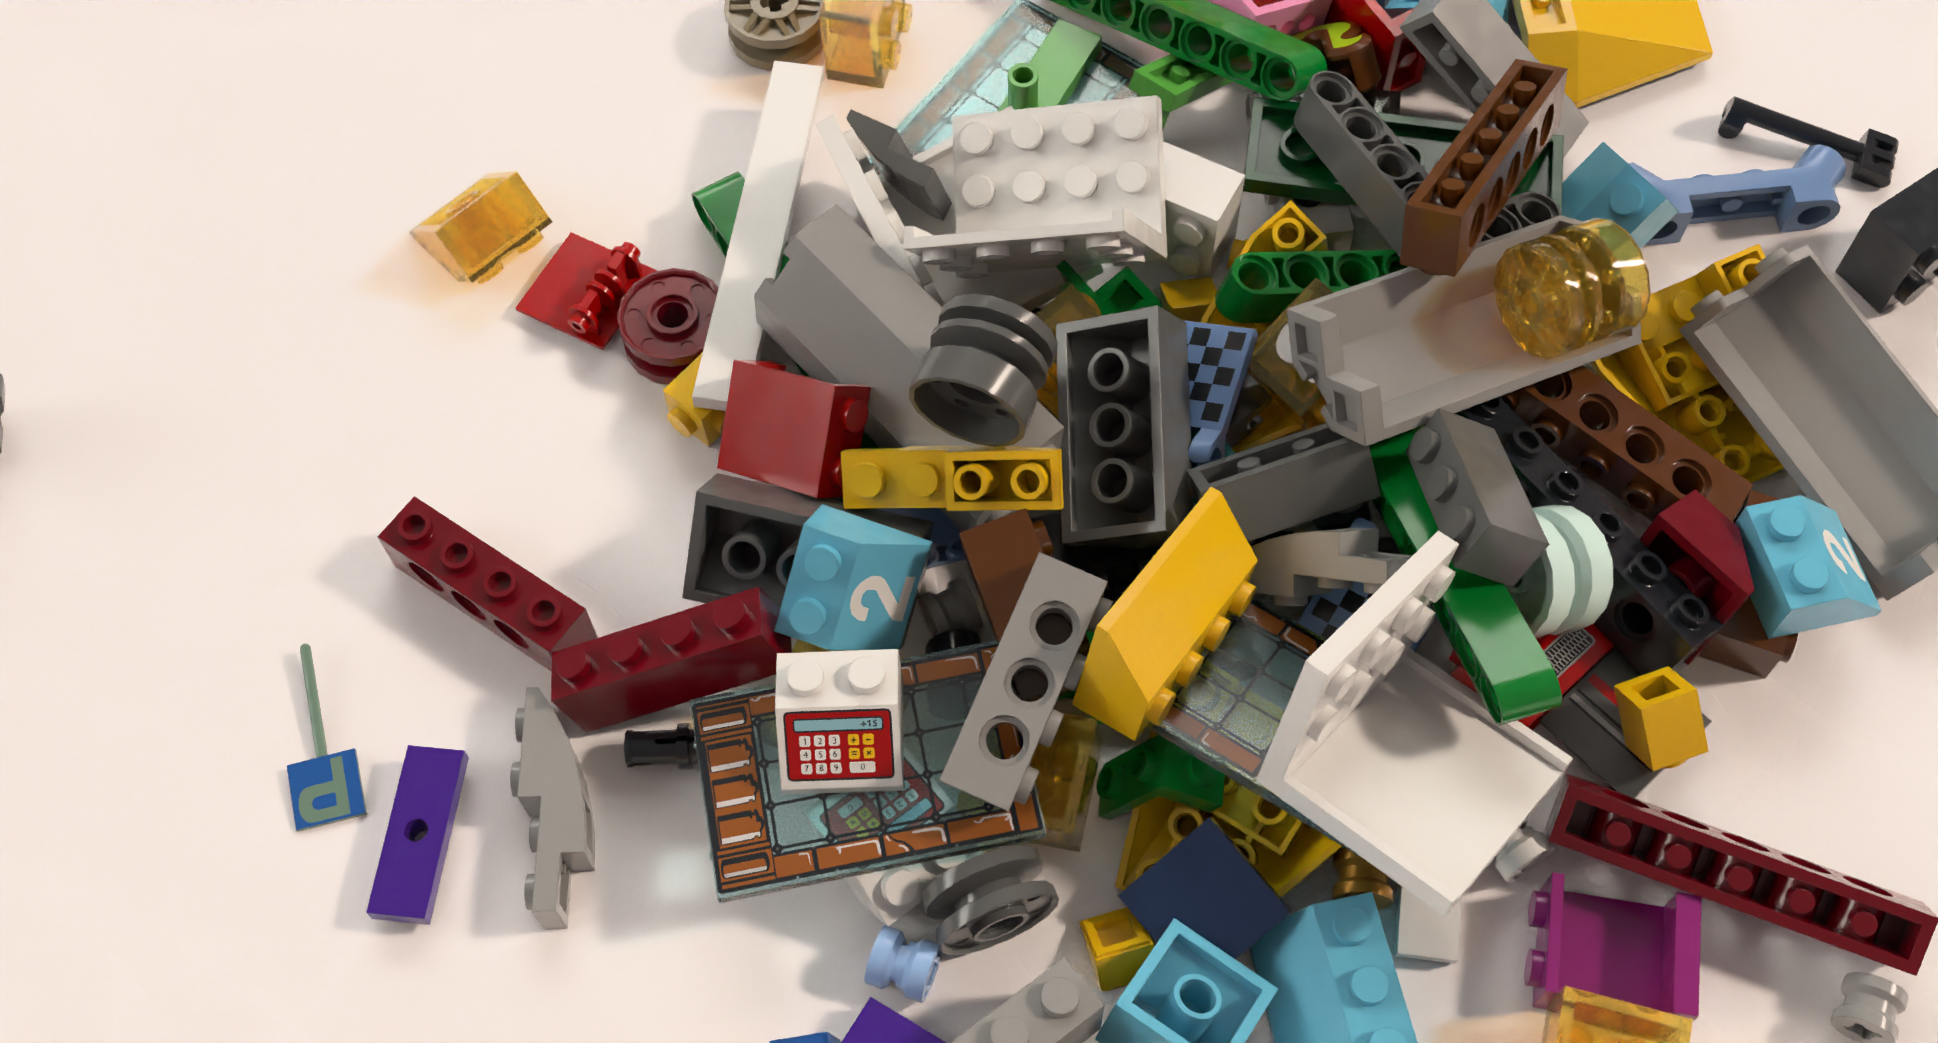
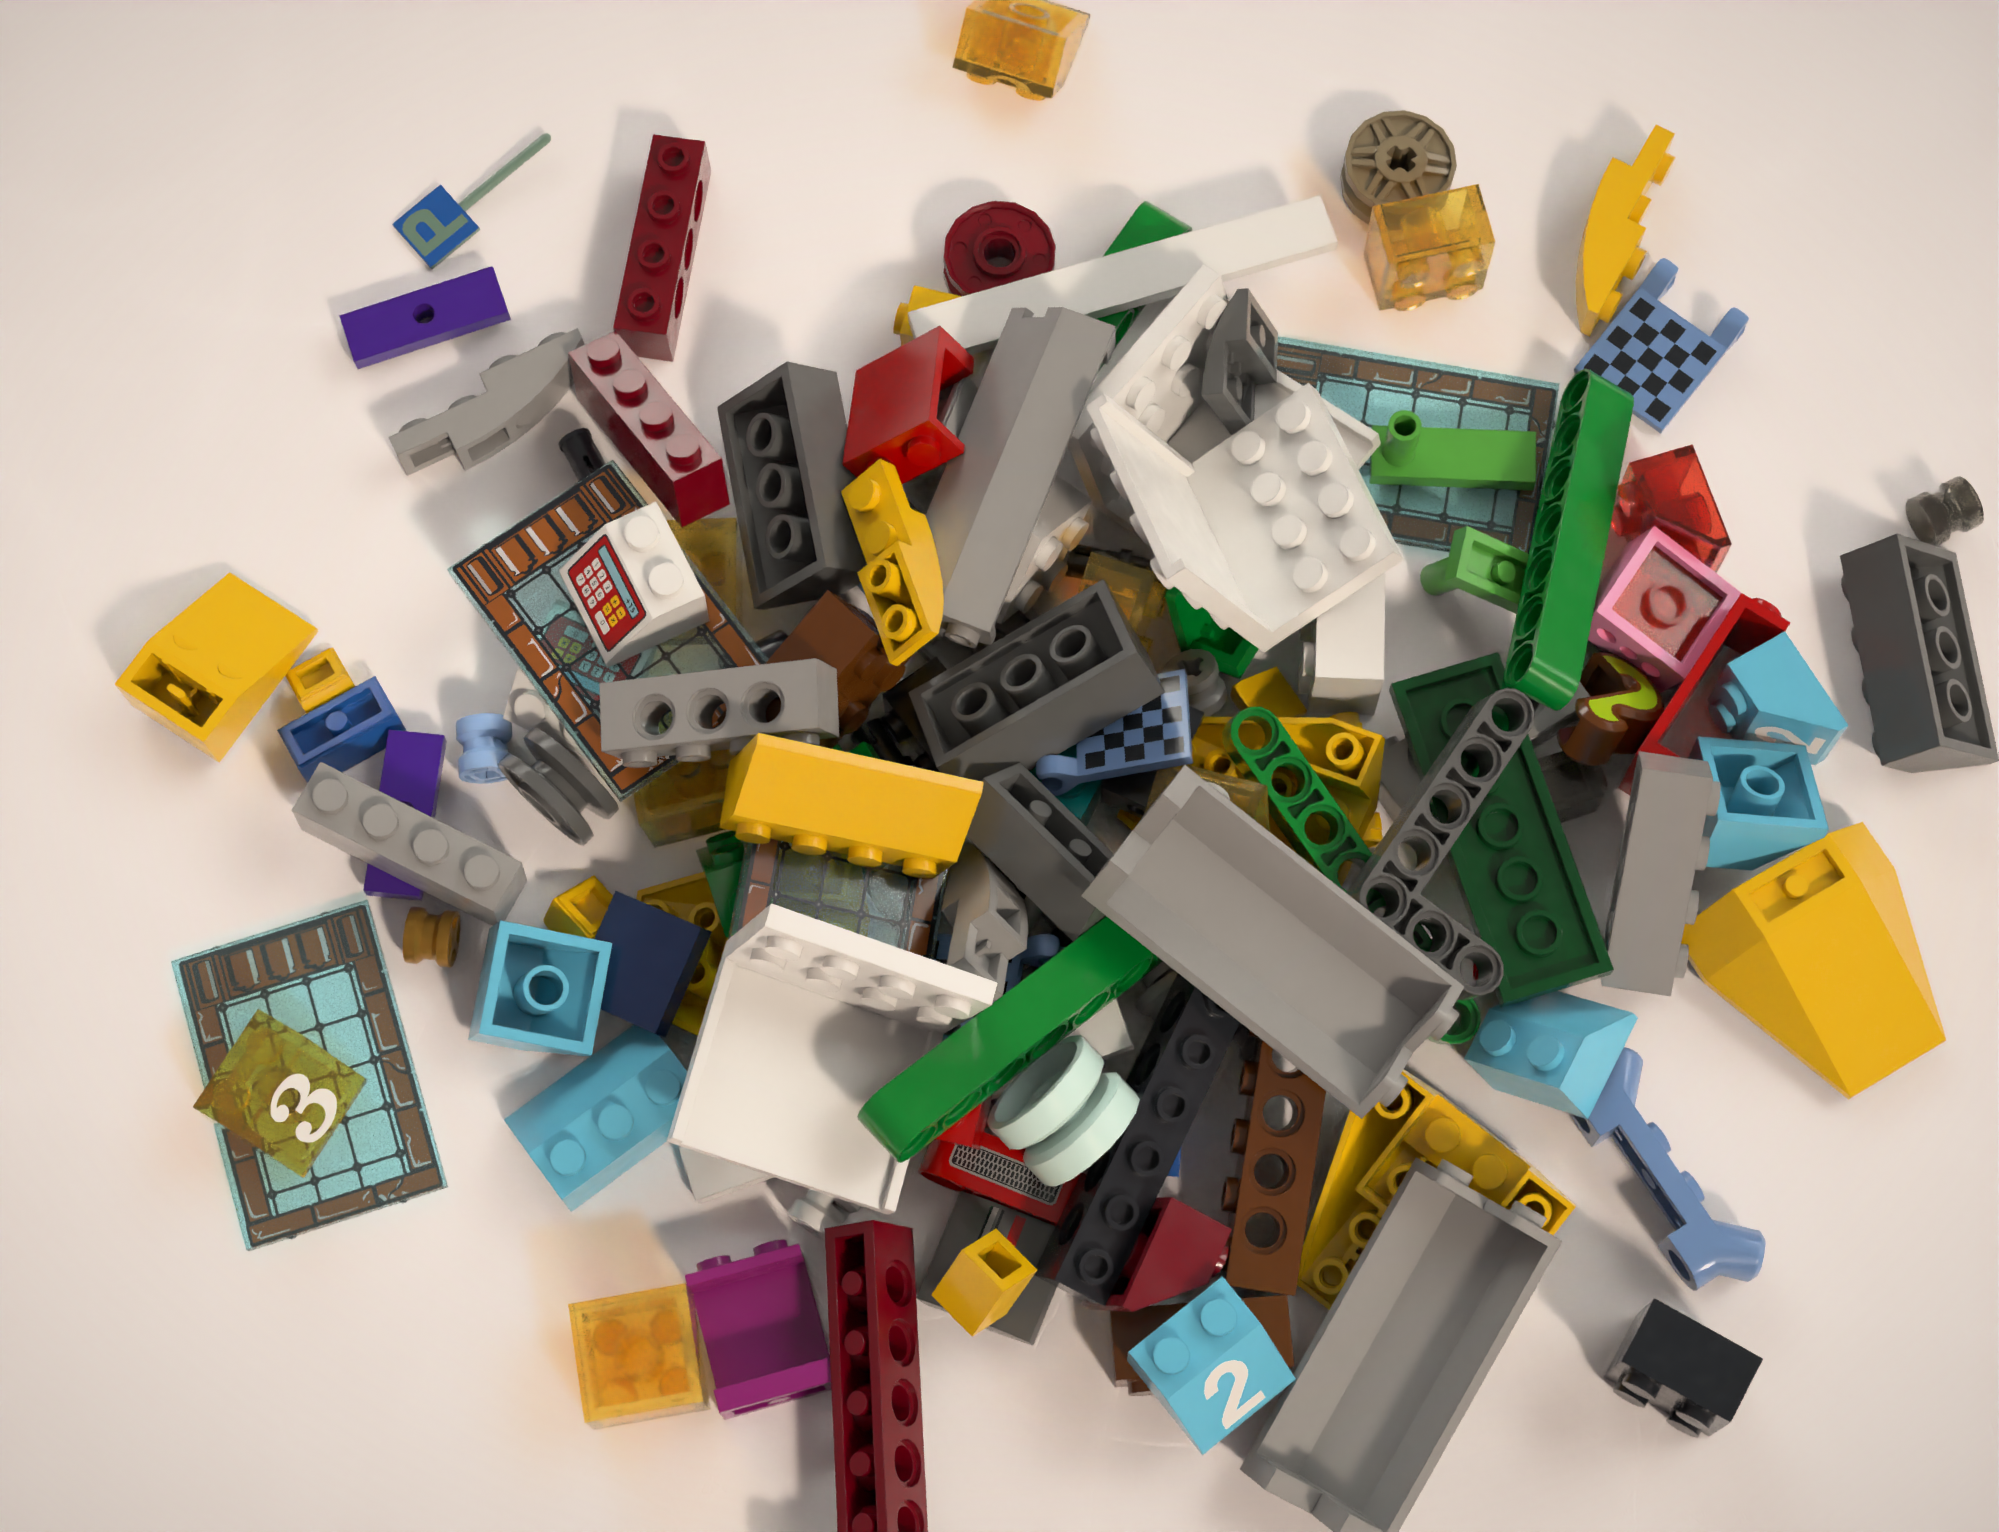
camera: 65 degrees right, 10 degrees up
(584, 289) = (1006, 163): red hinge -> none
(851, 583) = (765, 529): medium azure slope -> none
(983, 370) = (977, 530): dark grey wheel -> none
(1476, 497) = (1075, 1010): dark grey brick -> none
(1482, 168) = (1469, 887): reddish brown brick -> none
(1572, 287) = (1360, 1020): clear yellow wheel -> none
(1871, 155) = (1799, 1298): black hinge -> none

